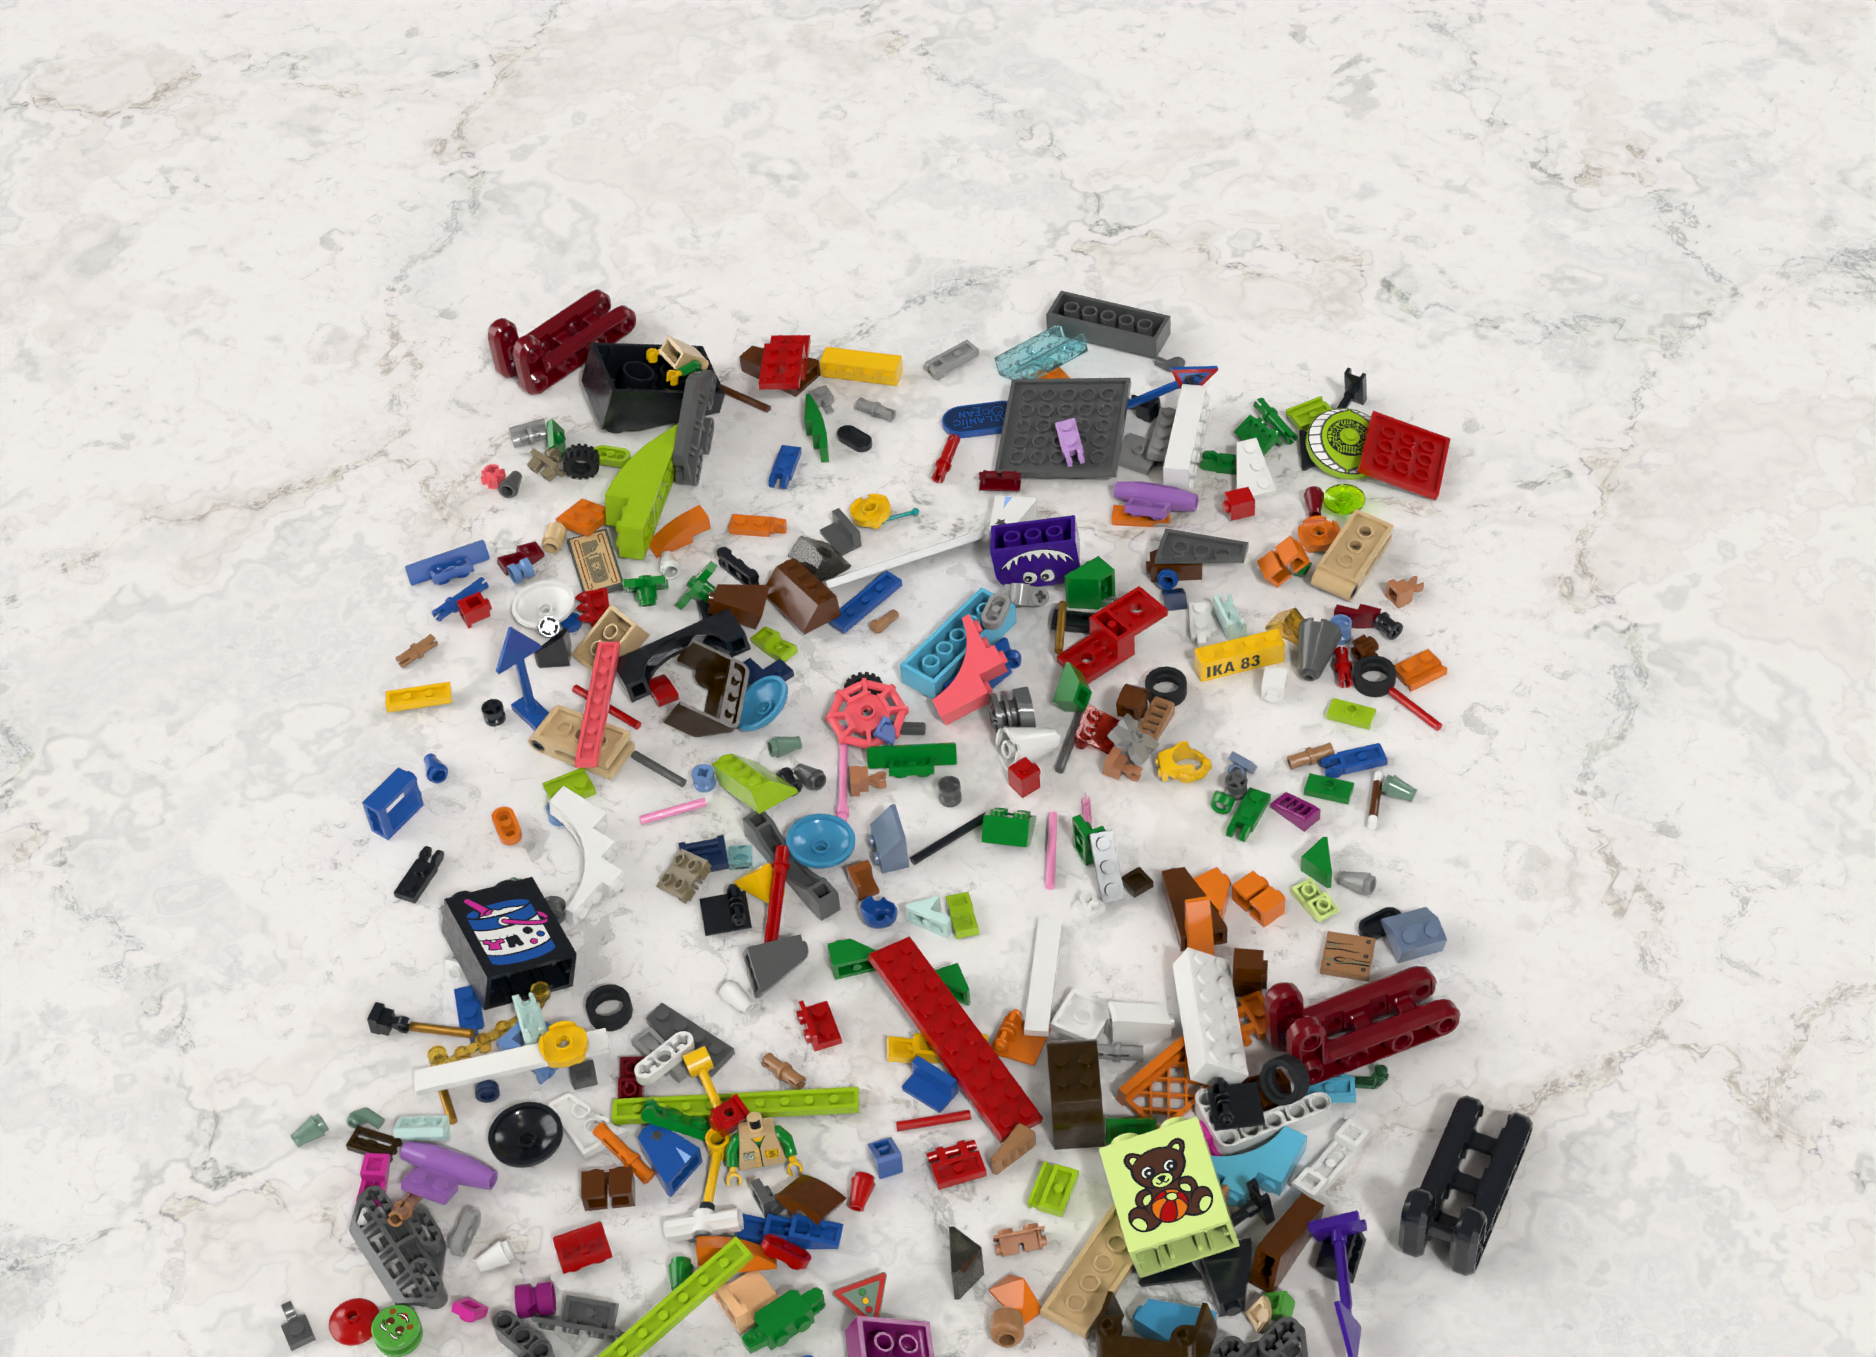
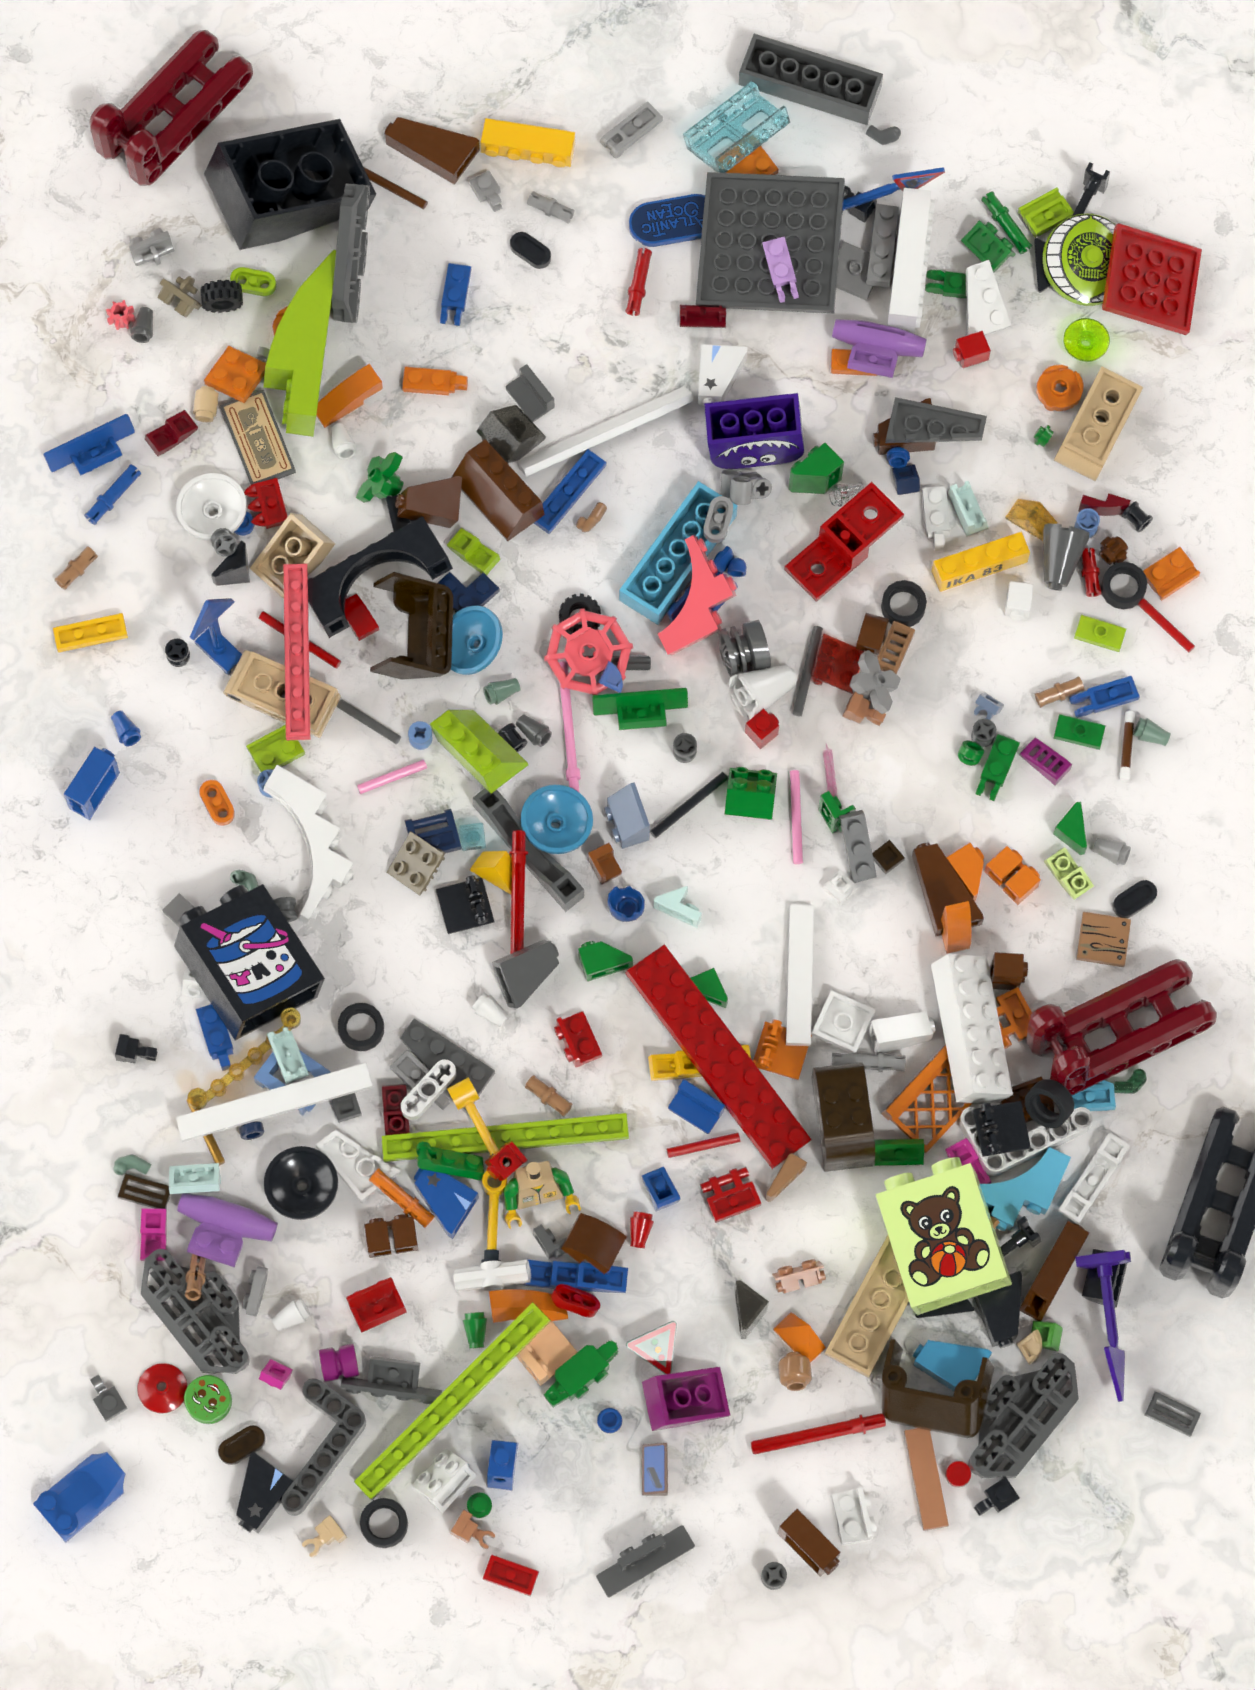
camera: 10 degrees left, 25 degrees up
(310, 1130) = (78, 1181): sand green cone -> none
(419, 875) = (132, 868): black hinge -> none
(442, 1030) = (192, 1059): pearl gold bar -> none
(474, 608) = (128, 504): red brick -> none
(520, 571) = (175, 454): medium blue wheel -> none
(556, 436) = (185, 256): green plate -> none
(566, 1056) = (335, 1075): yellow plate -> none
(646, 588) = (323, 480): green plant -> none
(680, 356) = (323, 151): tan torso -> none
(737, 567) = (421, 447): black hinge -> none
(784, 362) = (443, 153): red bracket -> none
(815, 426) = (484, 233): green slope -> none
(860, 780) = (588, 734): nougat piece -> none
(870, 511) = (561, 373): yellow plate -> none
(915, 511) = (573, 370): teal hinge -> none
(962, 915) = (710, 901): lime slope -> none
(1053, 1189) = (827, 1219): lime plate -> none
(1060, 628) = (787, 528): pearl gold bar -> none
(1072, 691) = (807, 614): green slope -> none
(1075, 621) = (799, 515): black plate -> none
(1186, 774) = (913, 714): yellow piece -> none
(1275, 562) = (1017, 437): orange piece -> none
(1314, 499) = (1053, 341): dark red cone -> none
(1401, 592) = (1152, 469): nougat piece -> none
(1414, 934) = (1169, 913): sand blue slope -> none

